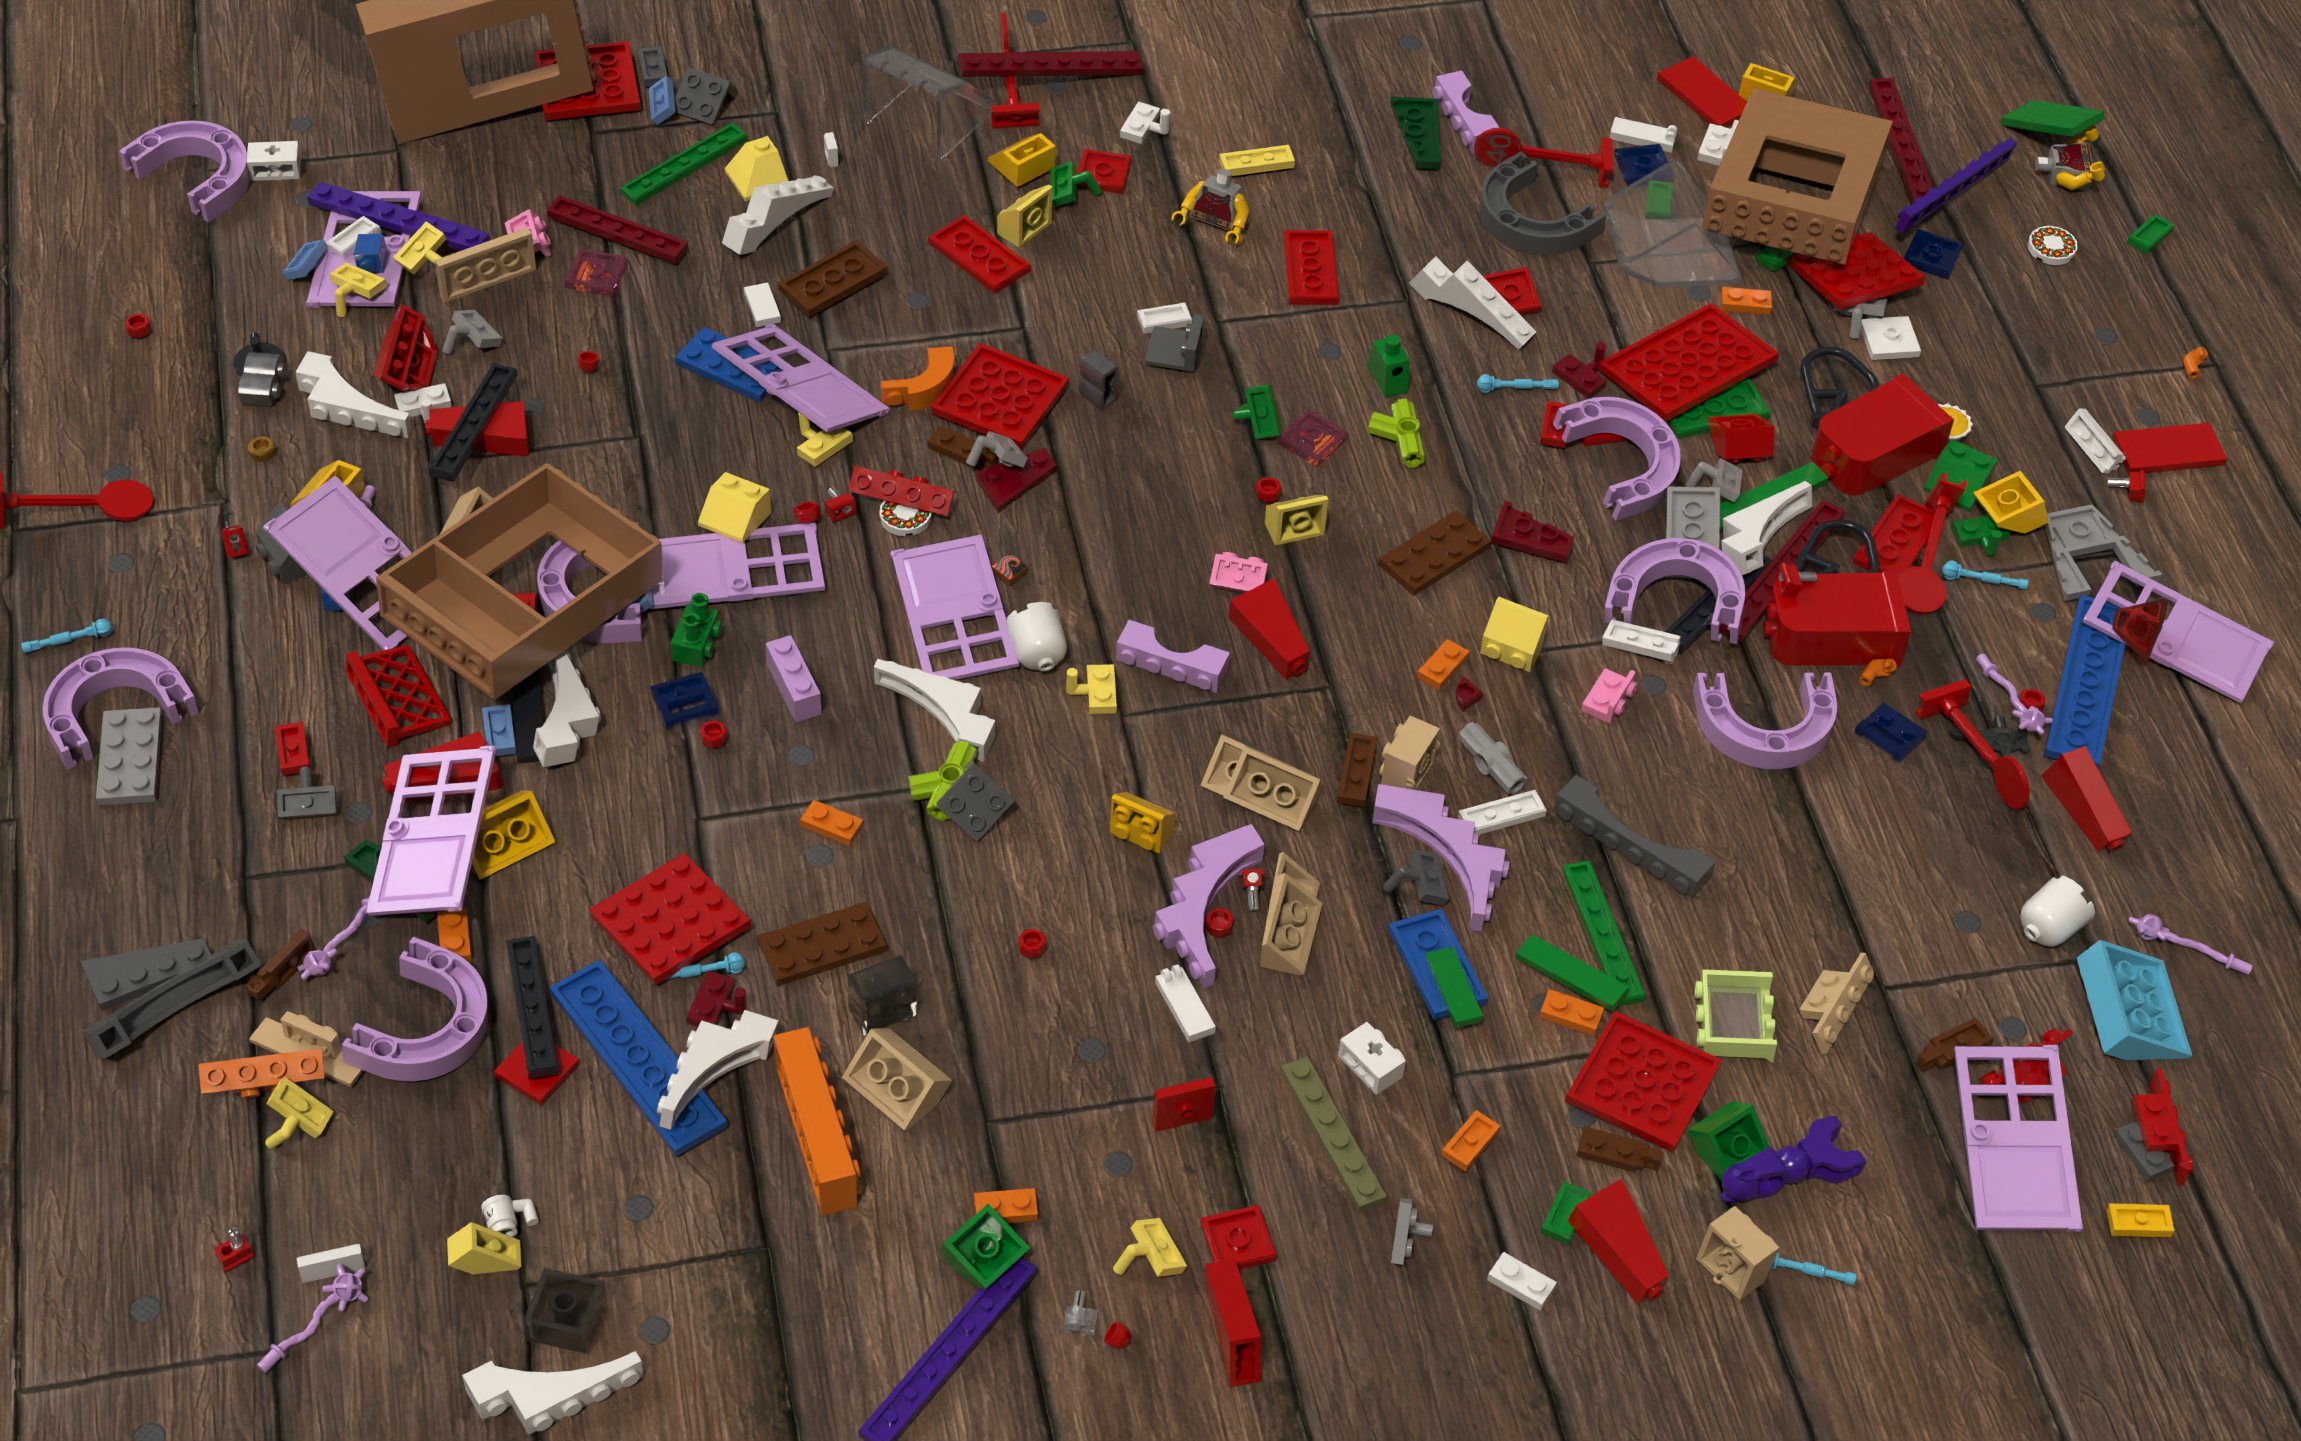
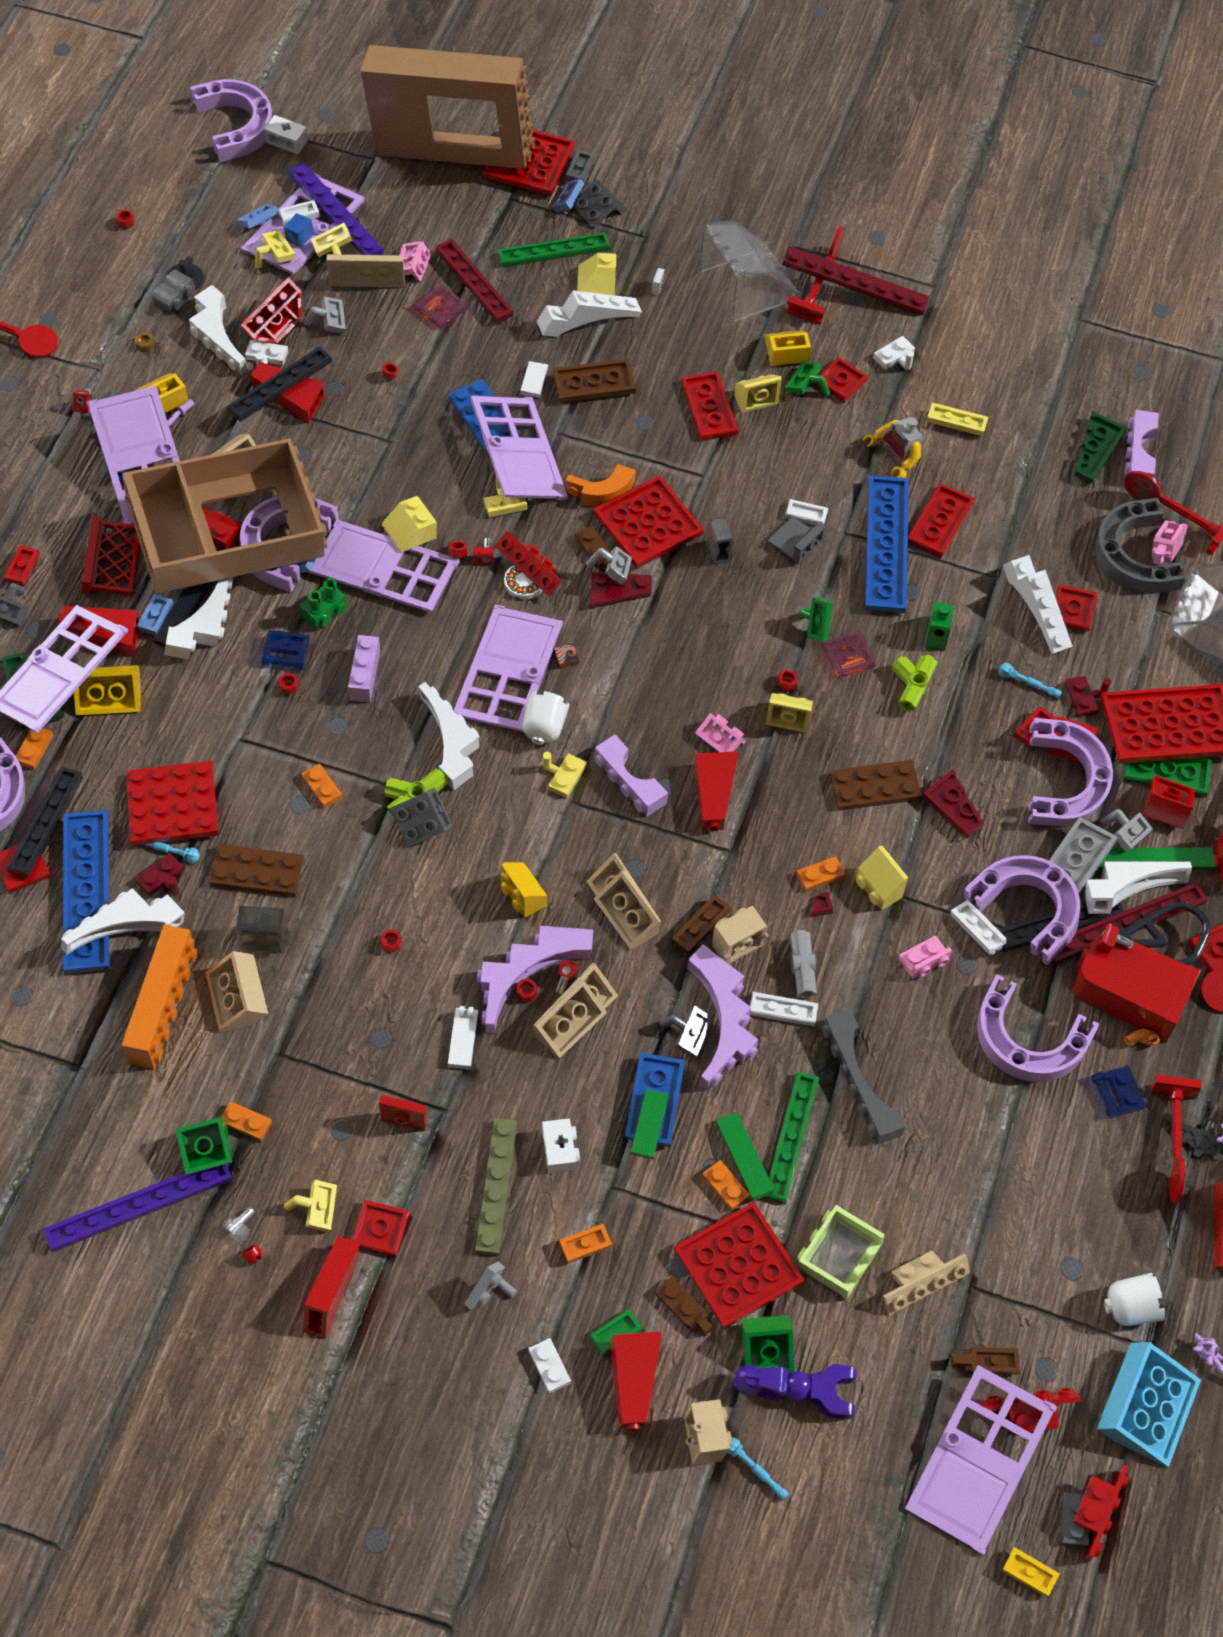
camera: 30 degrees right, 10 degrees up
(1274, 312) = (887, 544): none -> blue plate
(1561, 189) = (1168, 541): none -> bright pink hinge

